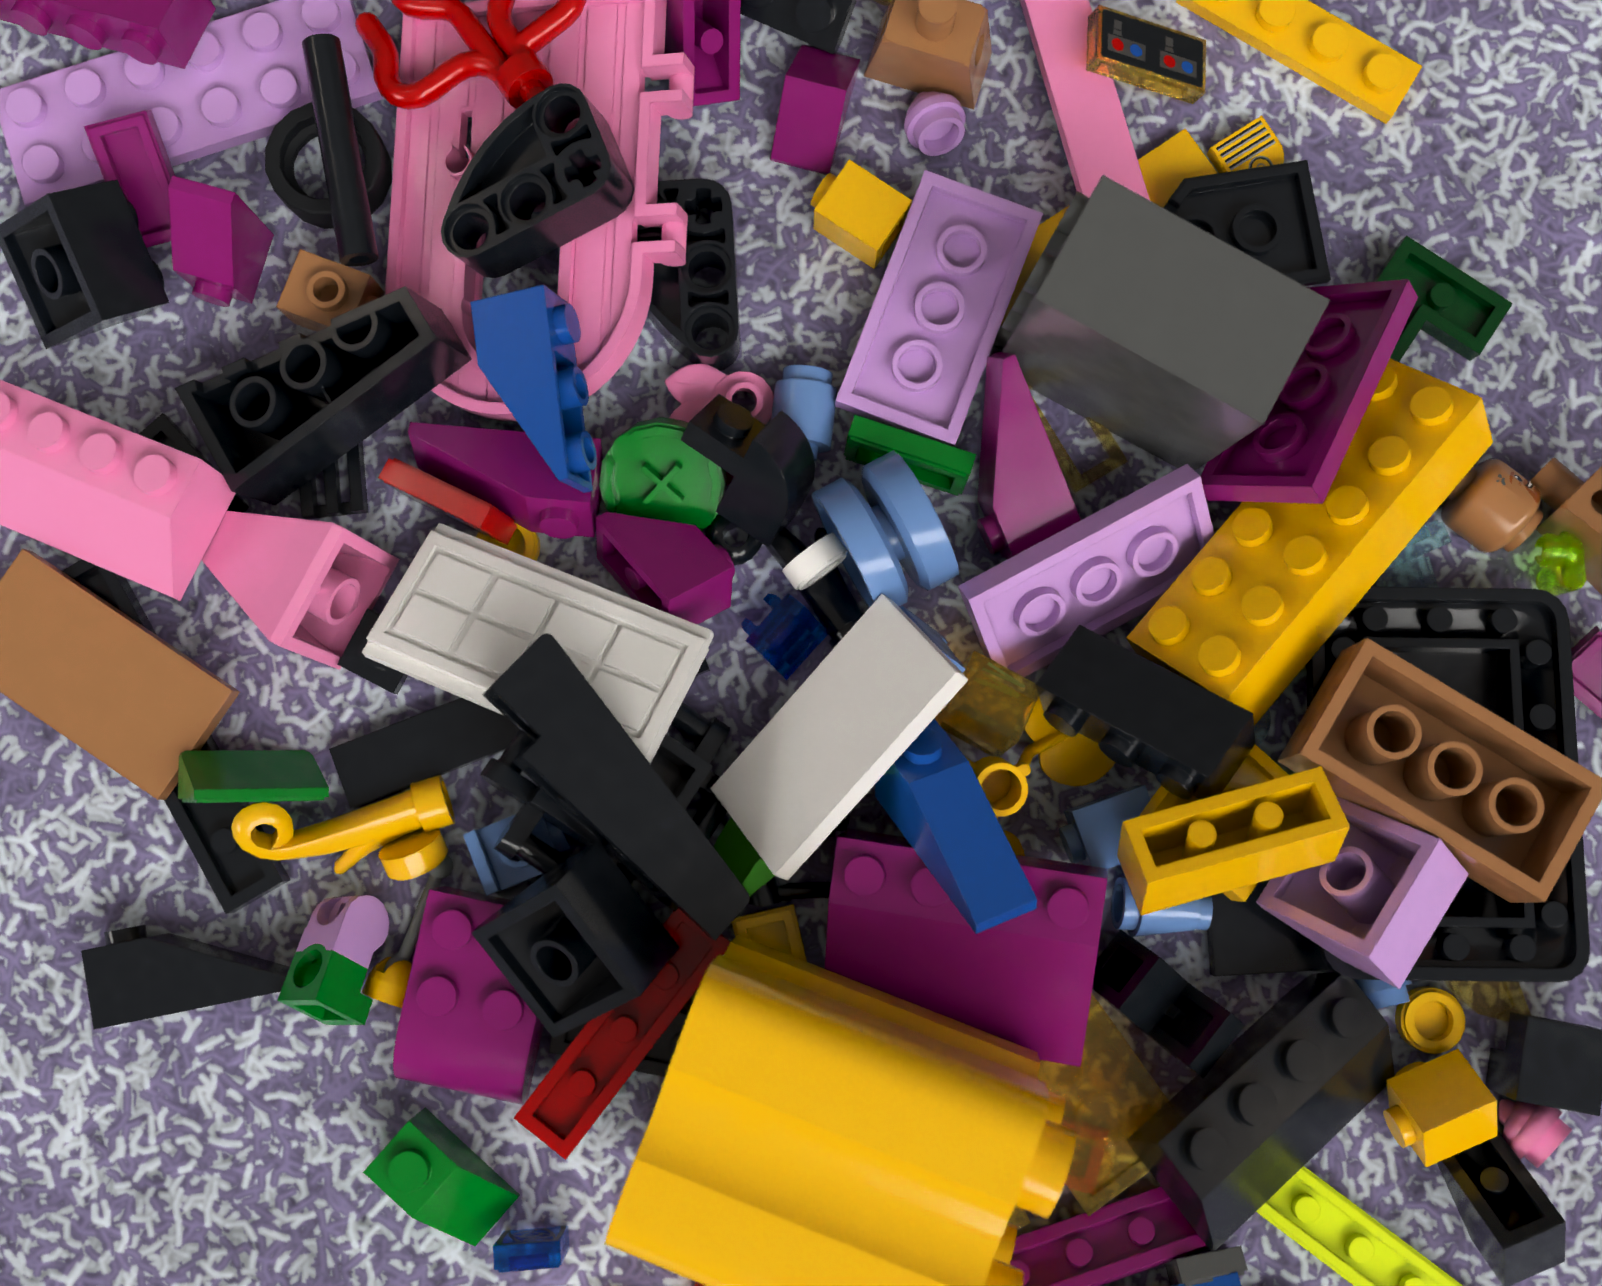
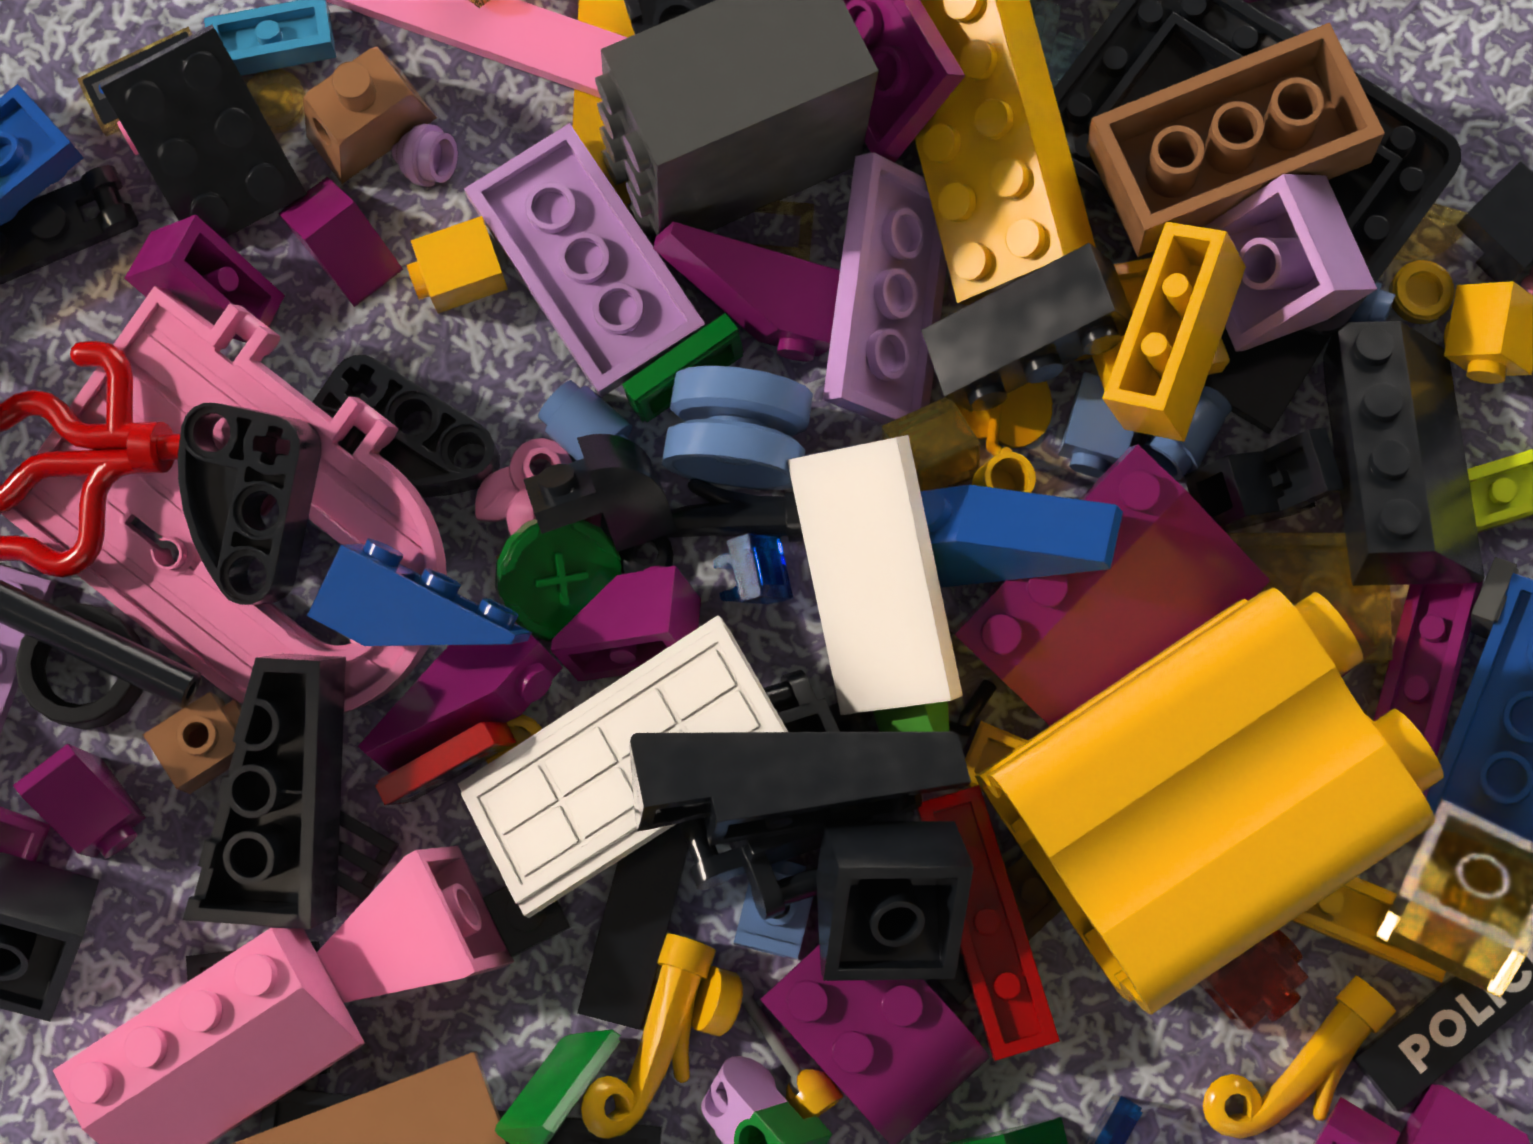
camera: 55 degrees left, 5 degrees down
(815, 562) = (719, 500): white tile -> none

